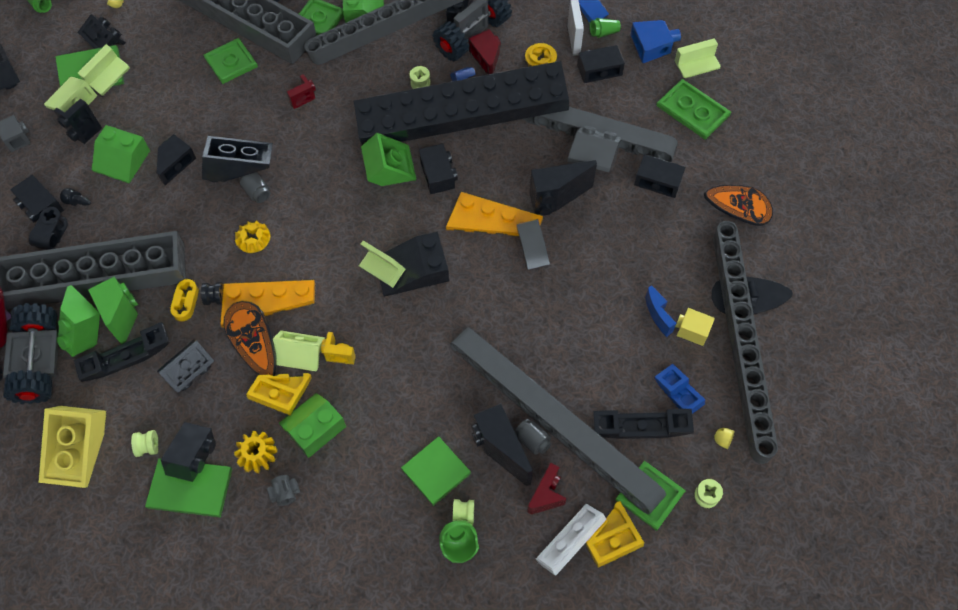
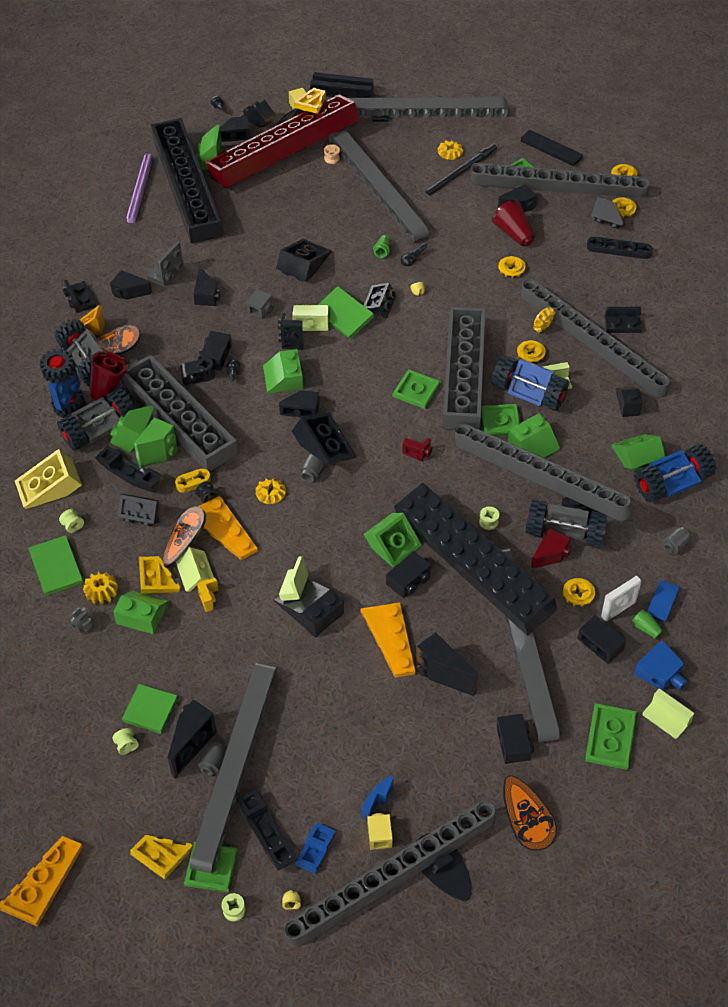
camera: 60 degrees right, 10 degrees down
(103, 70) = (345, 319): yellowish green panel -> none
(188, 452) = (77, 547): black brick -> none
(458, 541) = (99, 747): bright green hair -> none
(462, 74) = (515, 545): blue tile -> none
(533, 244) = (381, 673): dark grey slope -> none
(544, 497) = (166, 787): dark red slope -> none
(571, 539) = (143, 824): white tile -> none
(596, 146) = (500, 674): dark grey slope -> none

